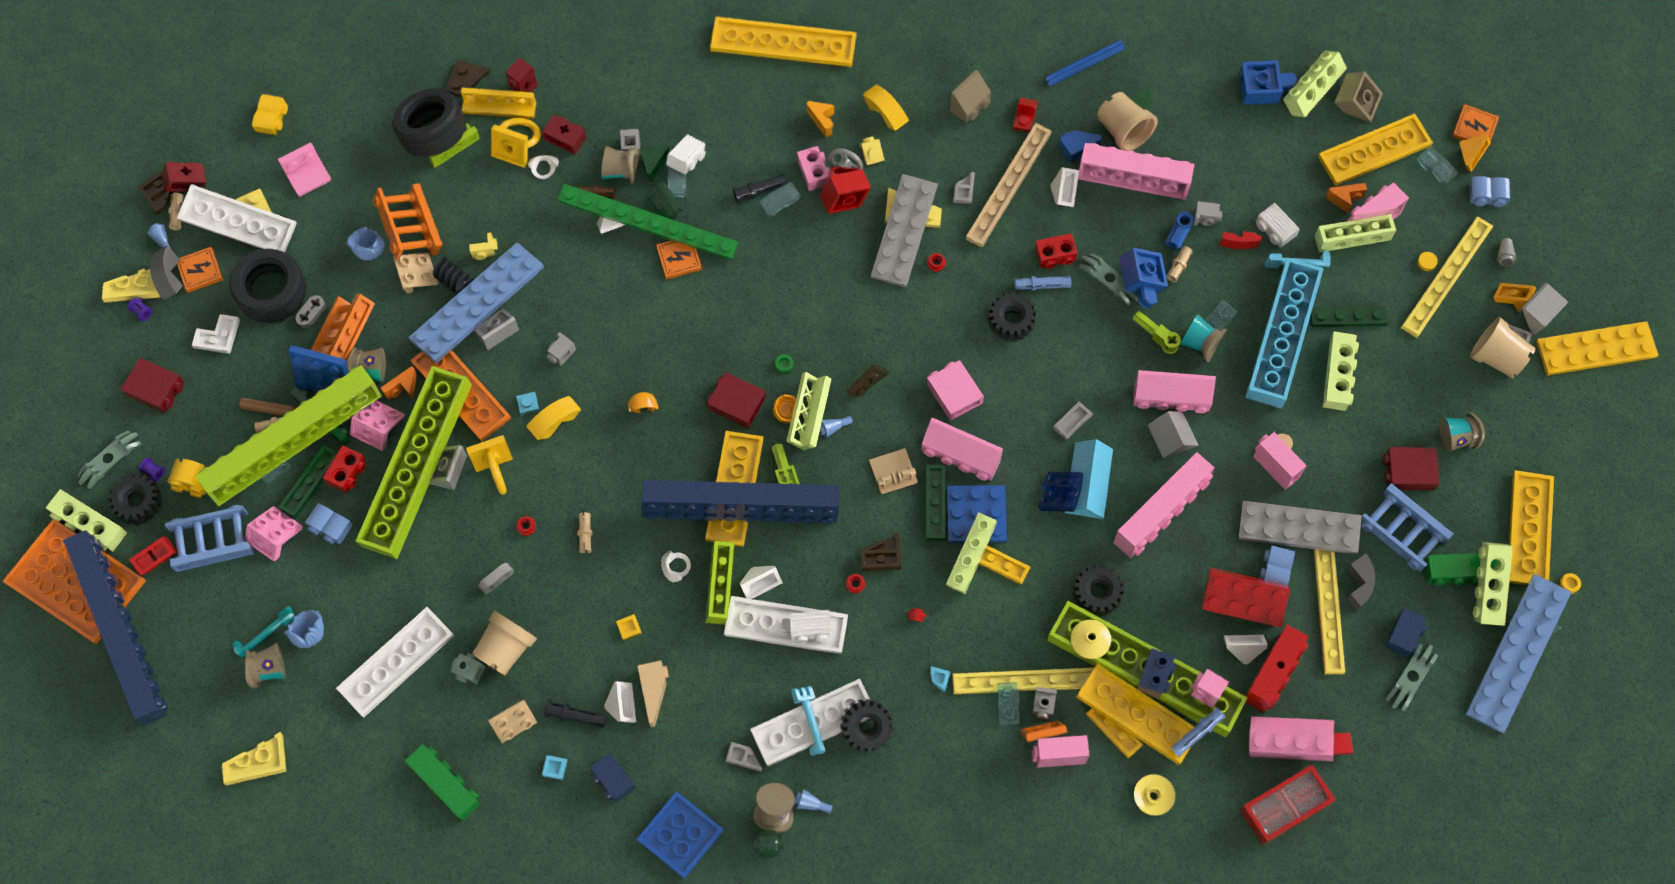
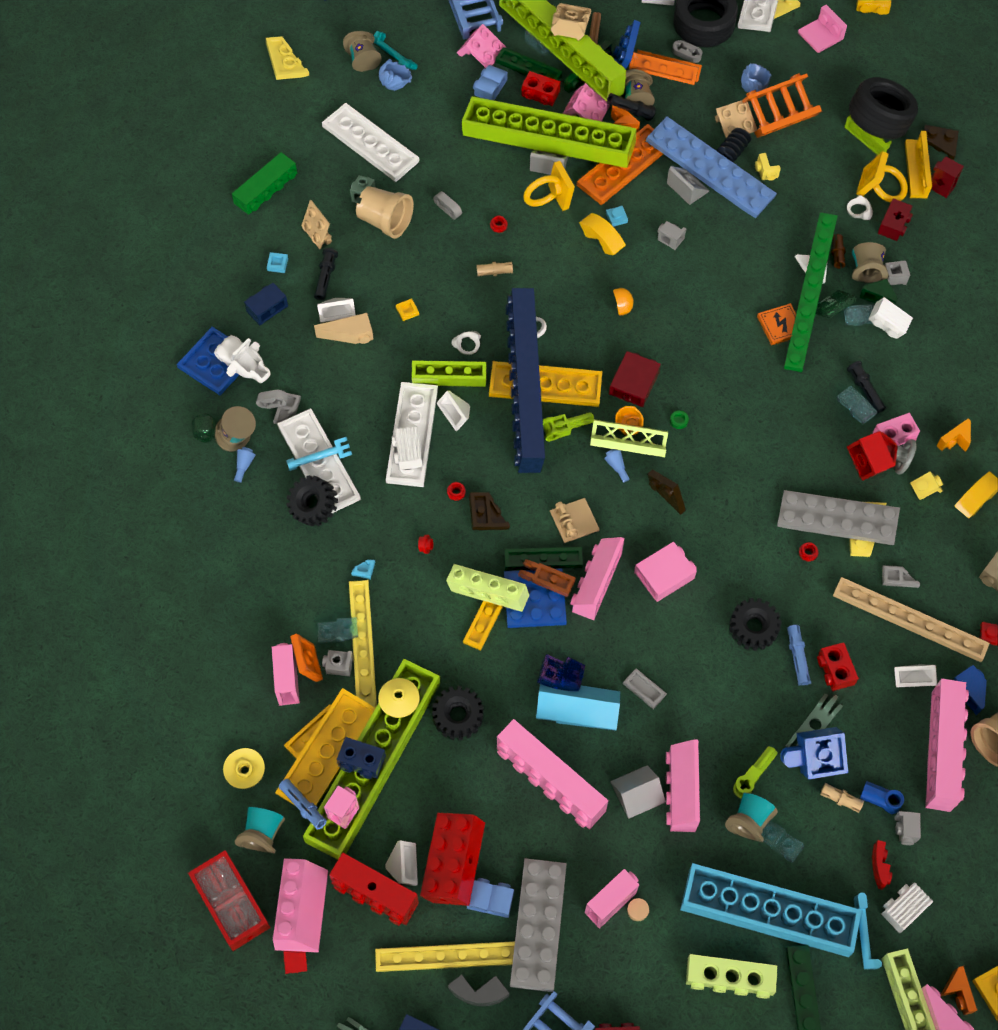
camera: 85 degrees right, 5 degrees down
(284, 416) = (570, 21): none -> tan slope
(391, 368) = (637, 108): none -> black pin
(688, 800) = (242, 358): none -> white piece
(737, 770) = (272, 399): none -> light grey beam
(962, 495) = (548, 577): none -> dark orange hinge
(1220, 775) = (260, 830): none -> hat

